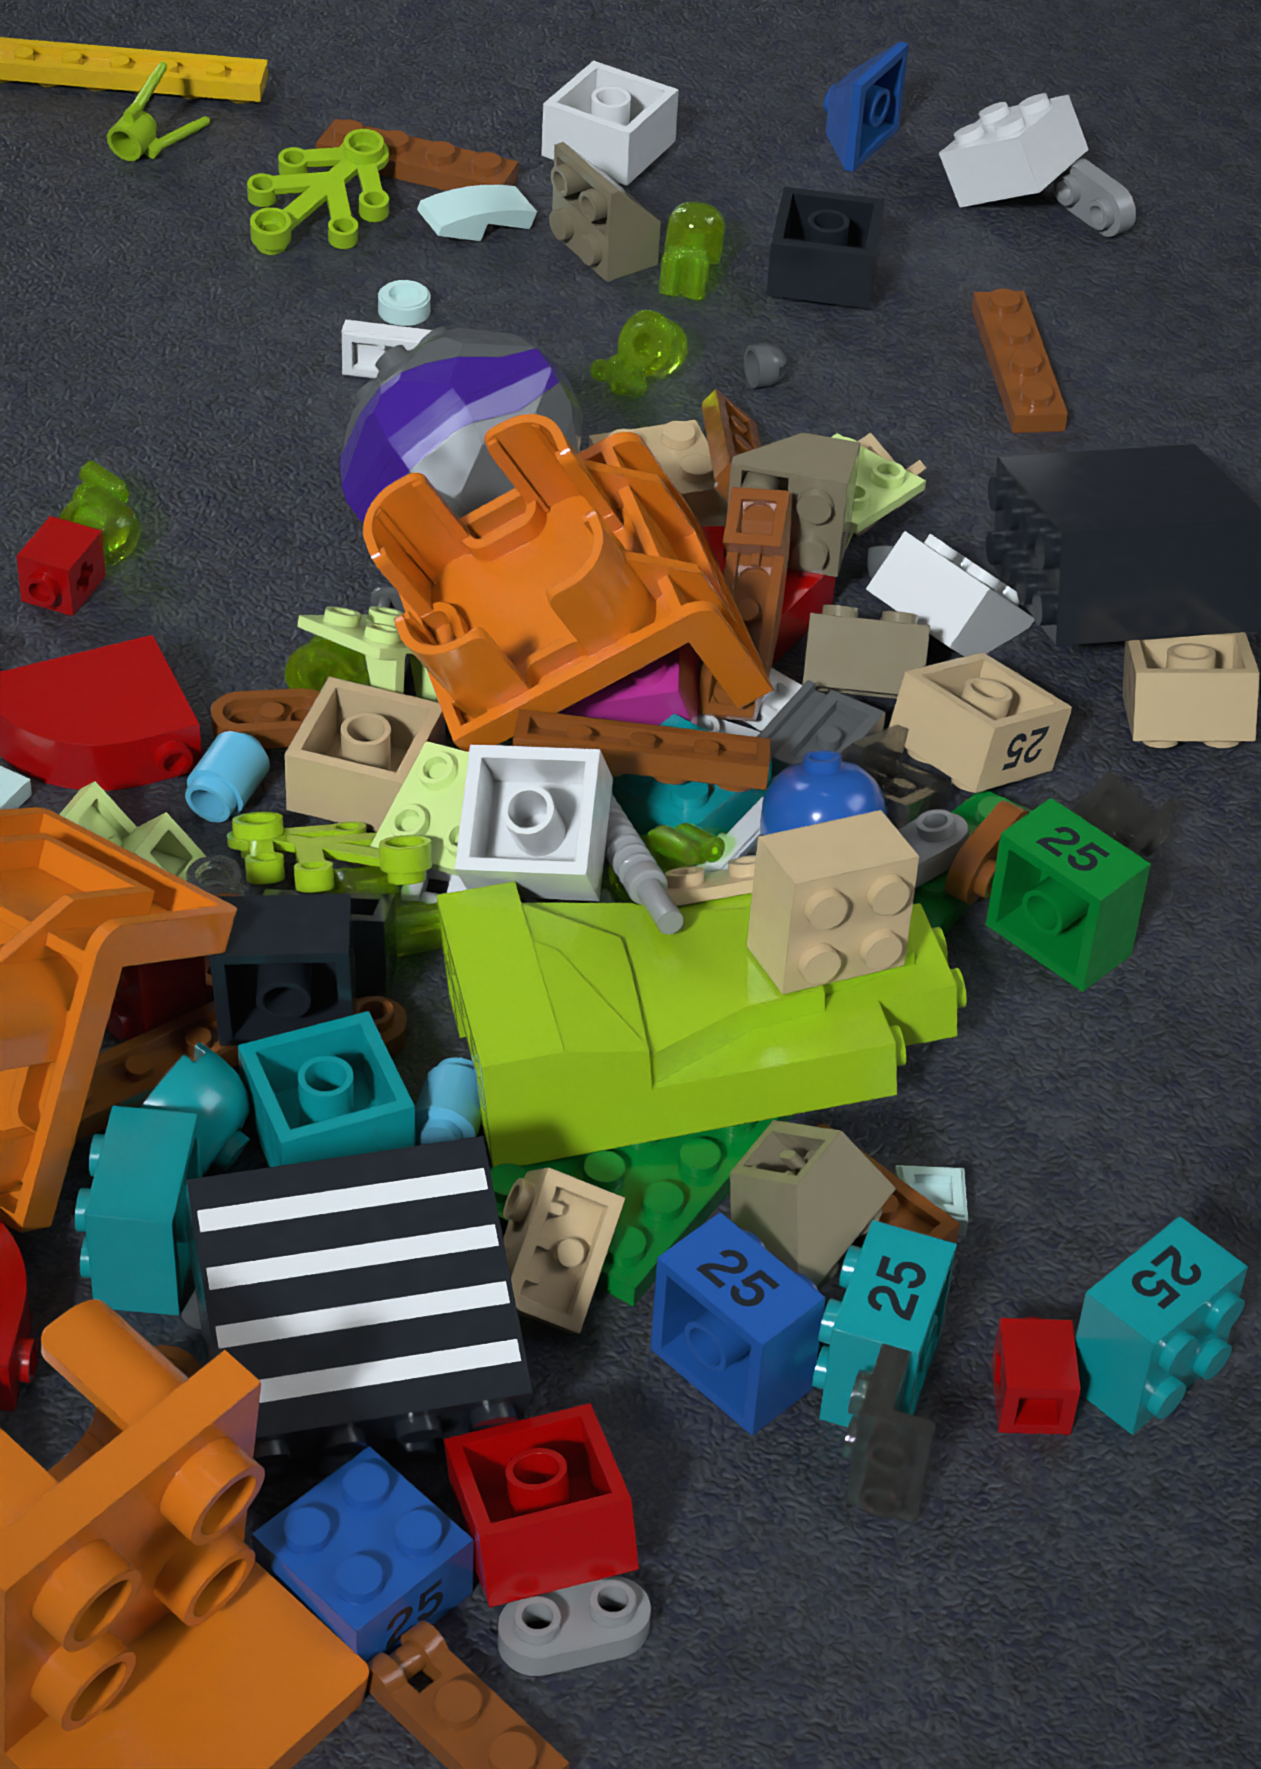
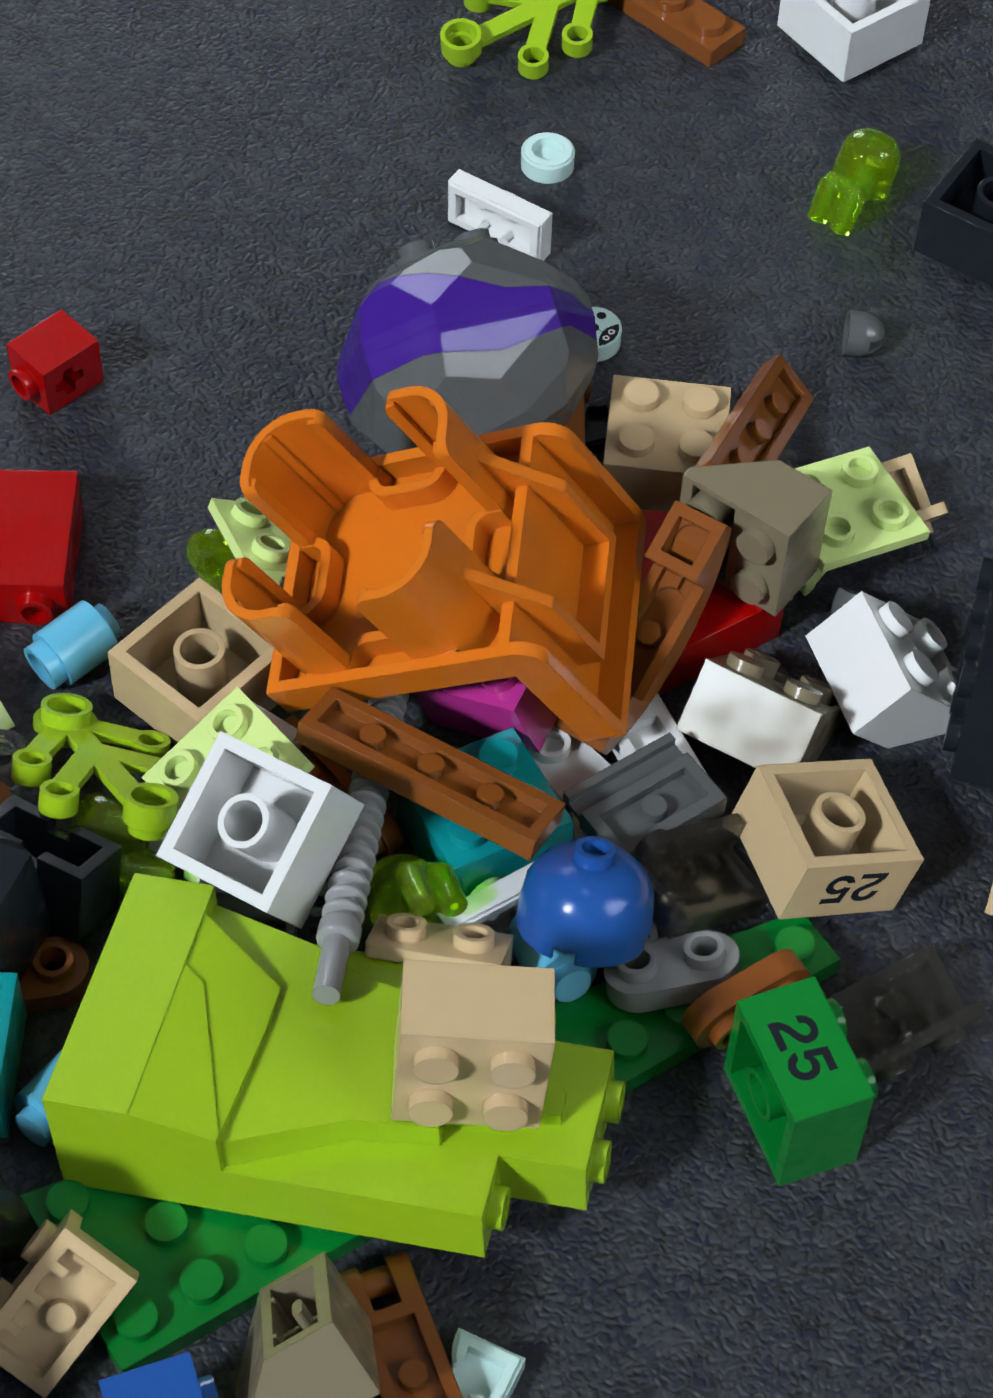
camera: 25 degrees right, 10 degrees up
(103, 506) = (121, 317): clear neon green piece -> none
(265, 714) = (149, 581): dark orange plate -> none
(469, 210) = (660, 70): light aqua slope -> none
(600, 218) = (782, 116): dark tan slope -> none
(646, 348) = (743, 284): clear neon green piece -> none

